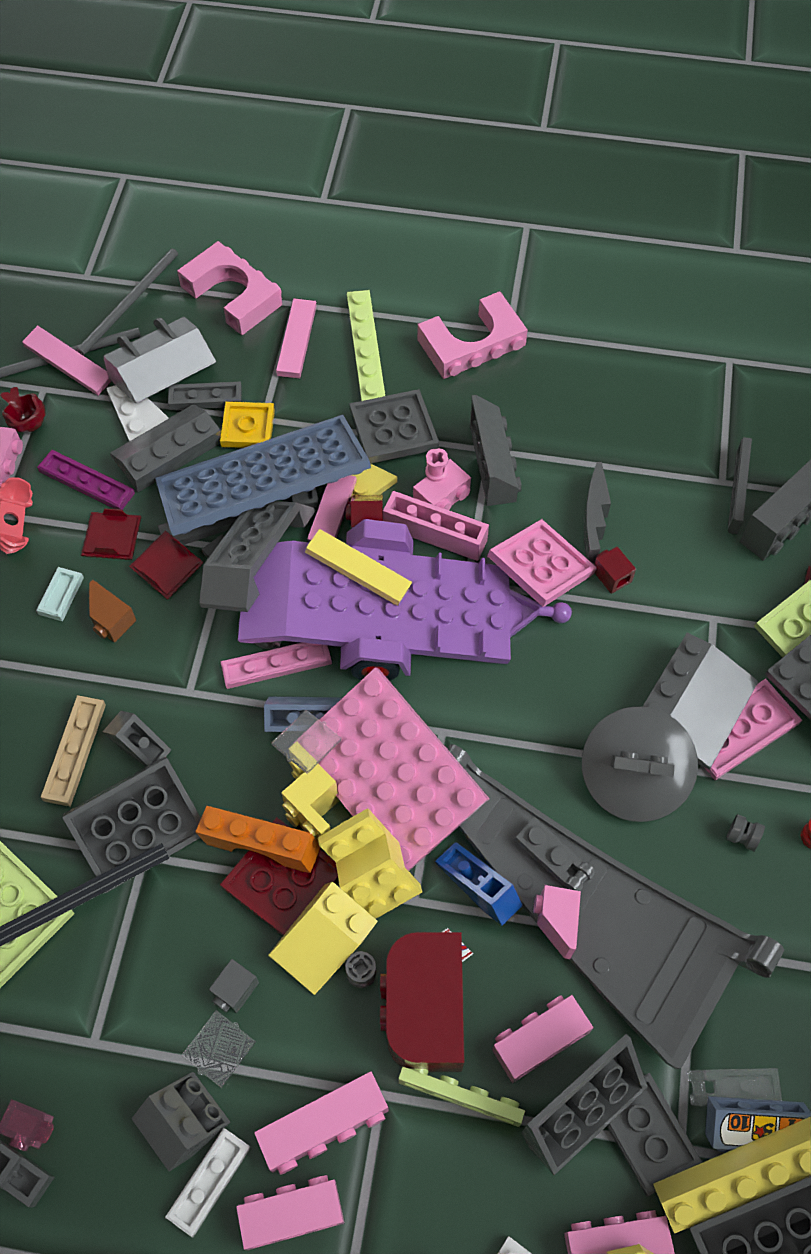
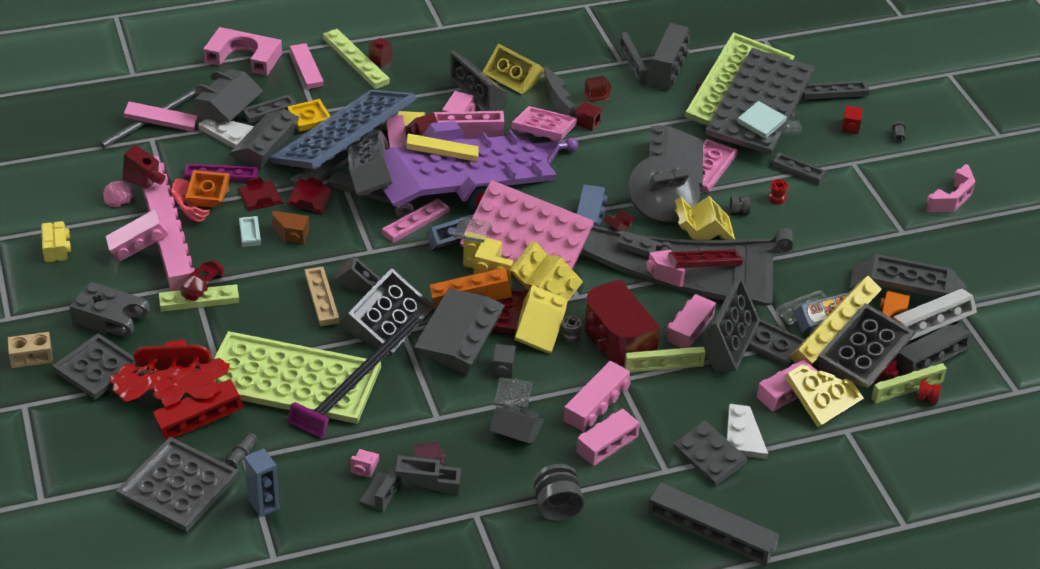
camera: 30 degrees left, 20 degrees down
(23, 412) = (155, 146): dark red hat -> none
(45, 504) = (207, 188): none -> orange slope
(127, 302) = (176, 79): dark grey piece -> none
(196, 908) = (459, 329): none -> dark grey slope
(208, 1182) = (550, 443): white tile -> none
(394, 426) = (408, 81): dark grey plate -> none
(397, 351) = (380, 52): none -> dark red brick
(436, 464) = (451, 92): bright pink bush -> none
(454, 356) = (418, 45): bright pink arch -> none
(481, 883) = (611, 270): blue slope -> none
(519, 747) = (592, 203): none -> sand blue brick
(544, 792) = (620, 221): none -> dark red bracket
(557, 445) = (513, 69): none -> light yellow slope
(622, 934) = (706, 258): none -> dark red tile
(656, 523) = (597, 88): none -> clear red brick
(669, 848) = (704, 220): none -> light yellow bracket

